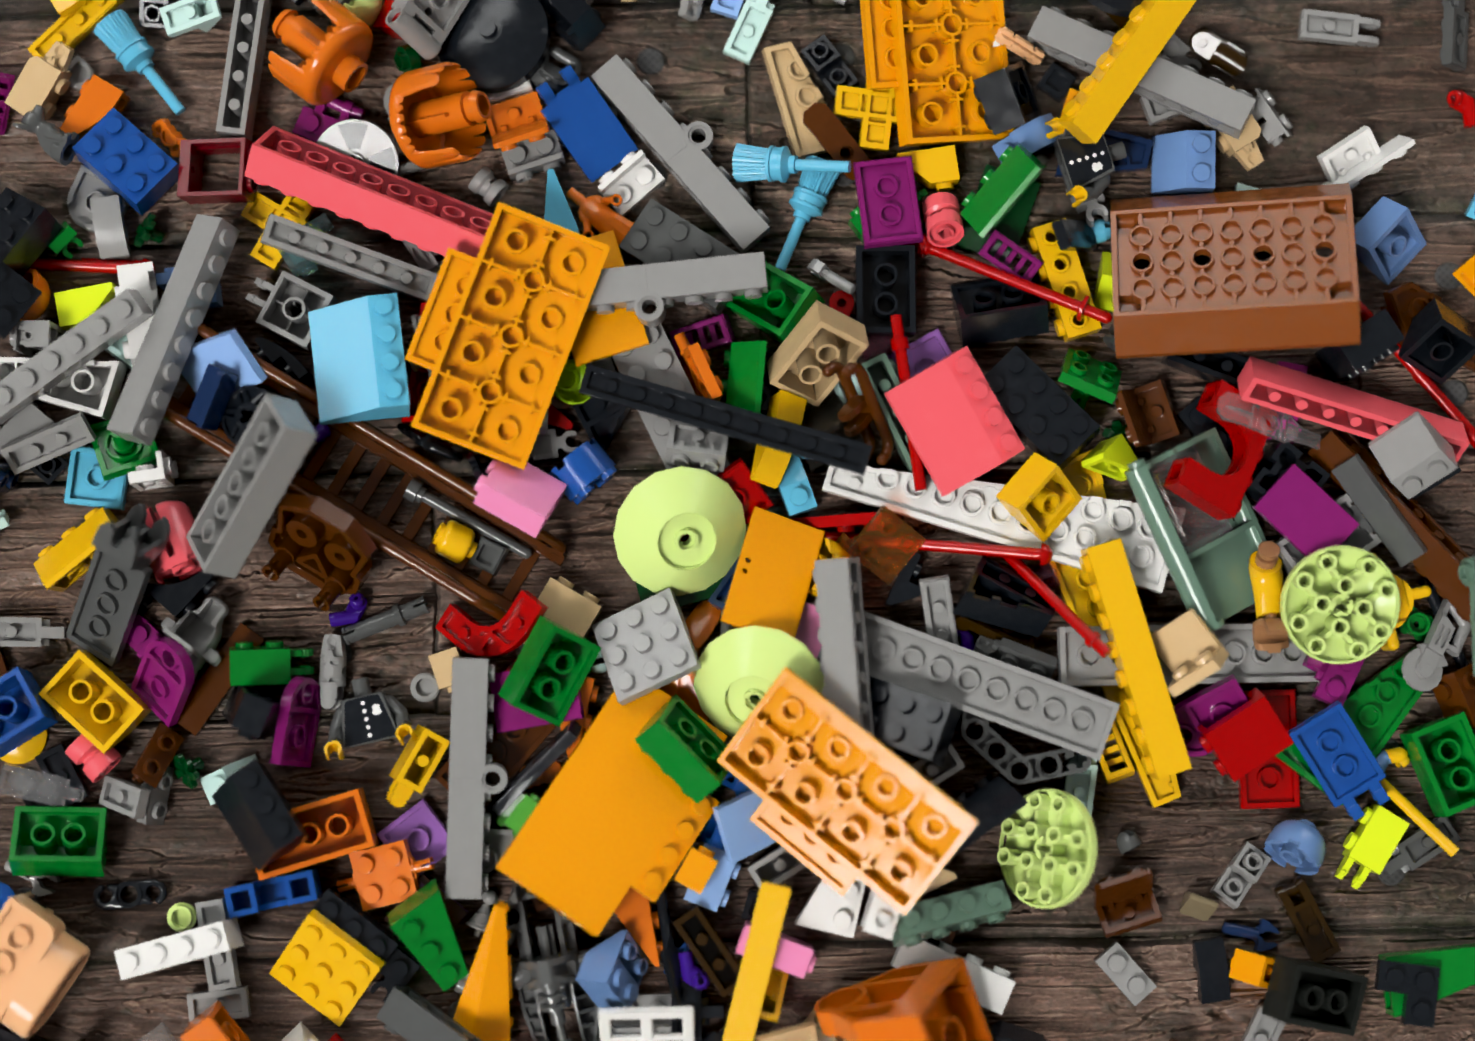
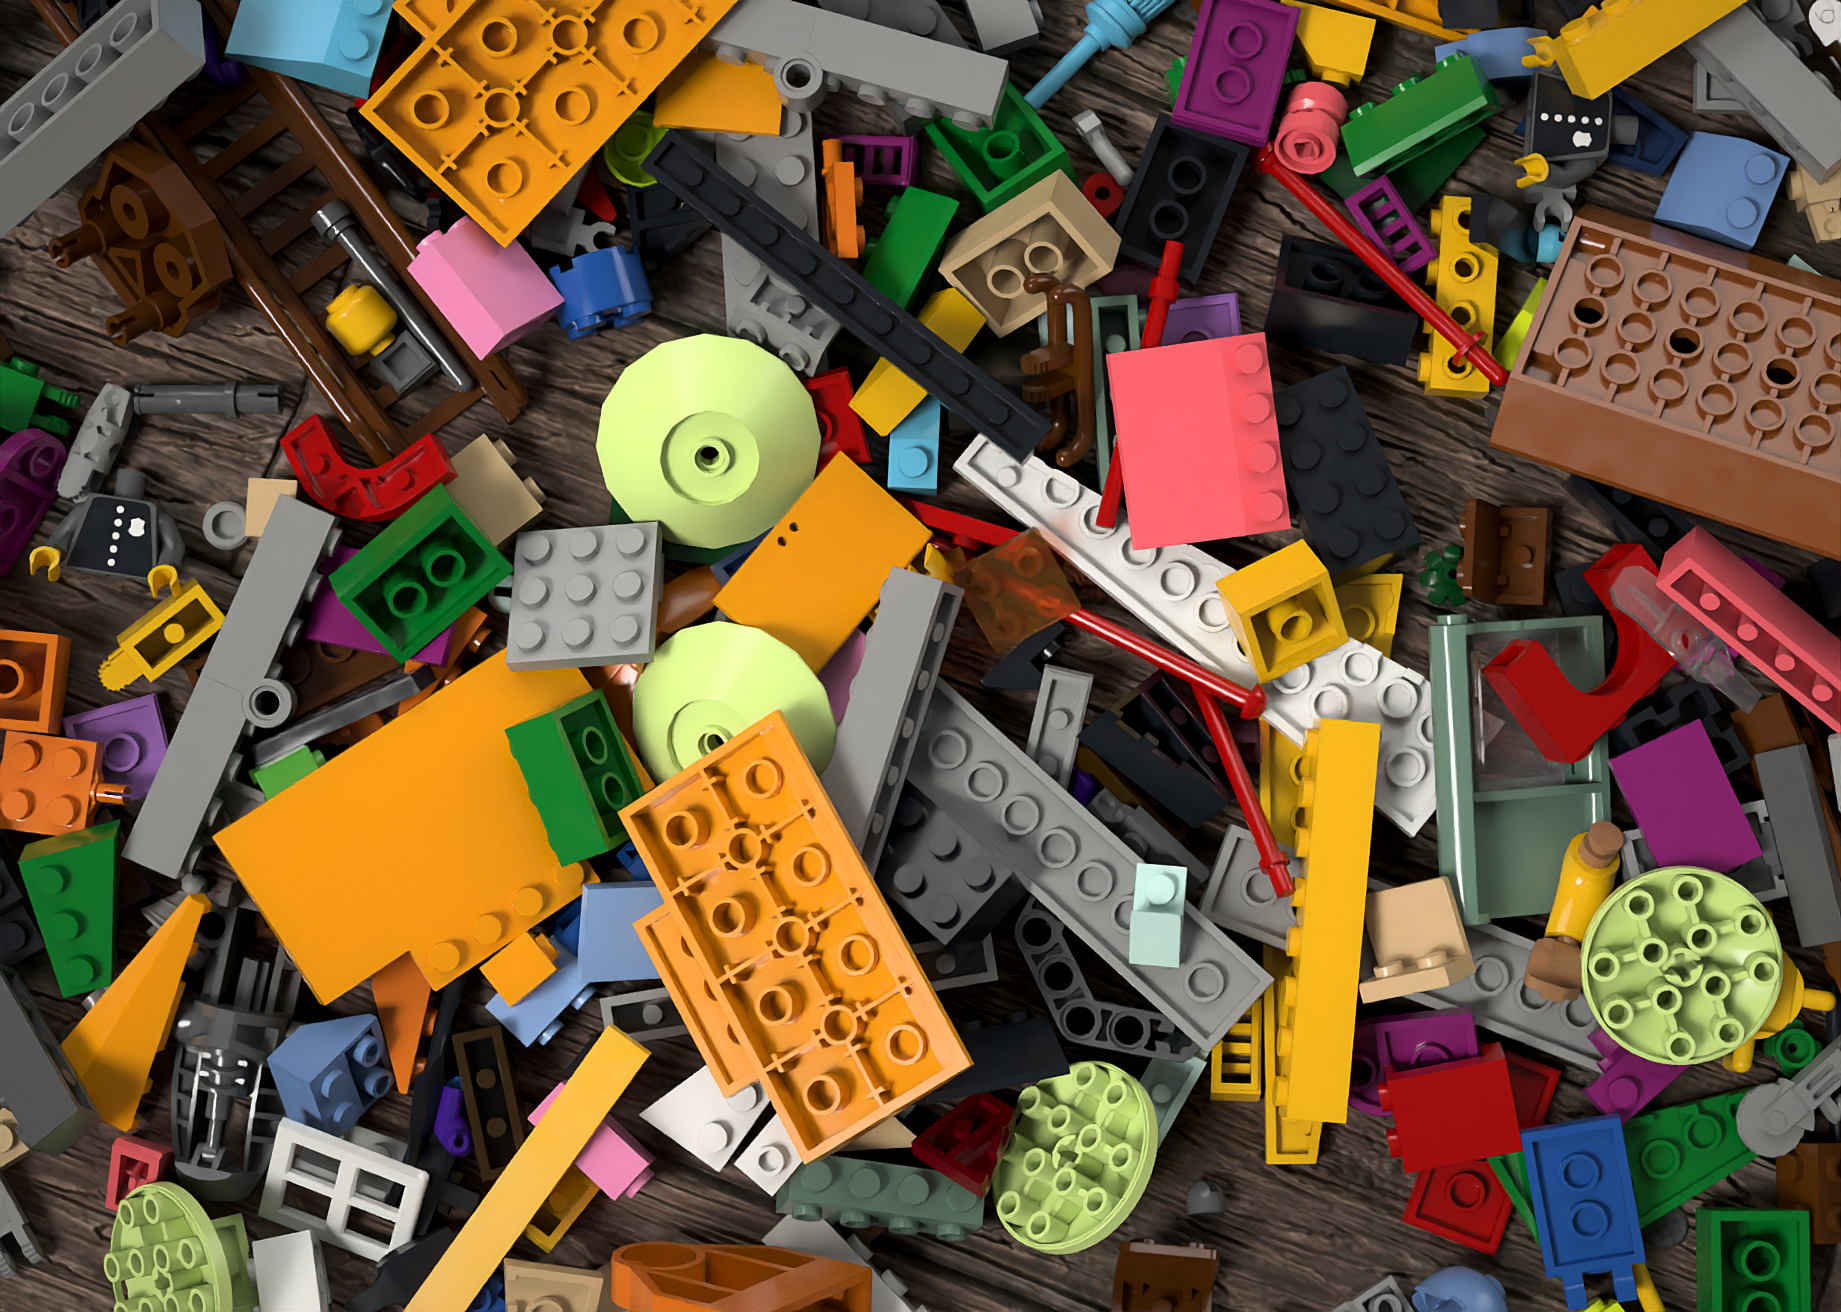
camera: 30 degrees right, 0 degrees up
(352, 613) = (164, 368): dark purple arm -> none
(985, 864) = (968, 1142): none -> dark red wing
(1041, 695) = (1157, 915): none -> light aqua slope
(1089, 377) = (1438, 461): green plate -> none
(1110, 458) = (1419, 597): neon yellow slope -> none
(1396, 755) = (1676, 1236): yellow arm -> none

